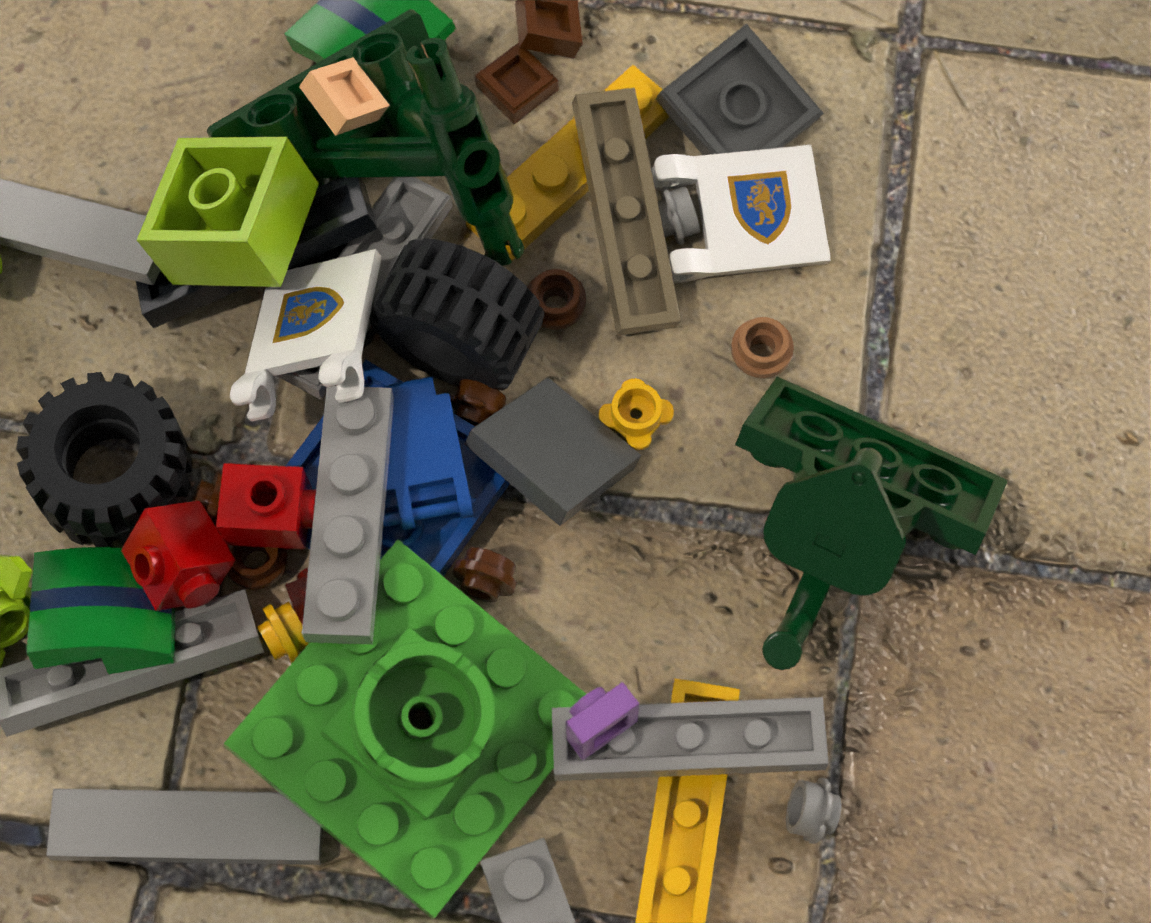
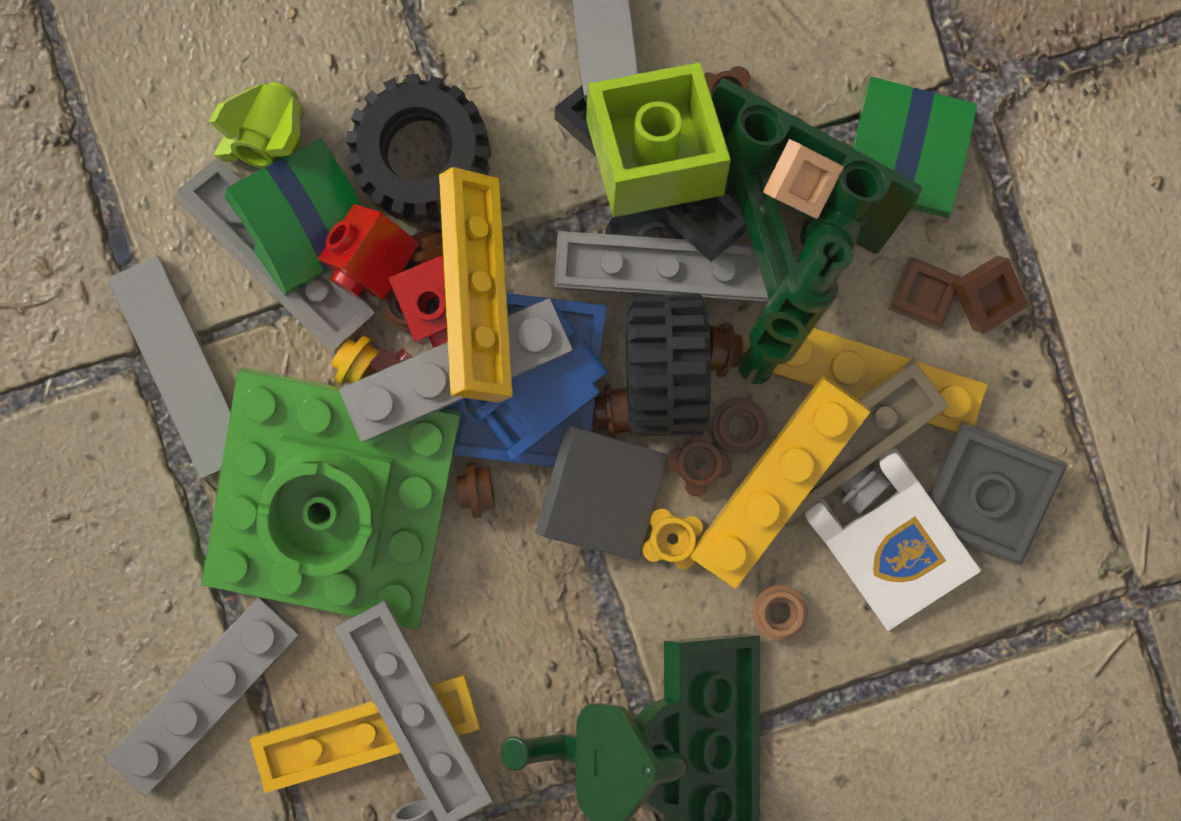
camera: 60 degrees right, 20 degrees up
(273, 438) = (475, 286): none -> yellow plate
(311, 323) = (596, 259): white flag -> none
(576, 337) = (714, 463): none -> reddish brown plate
(600, 718) = (383, 647): medium lavender plate -> none
(630, 274) = (779, 481): none -> yellow plate

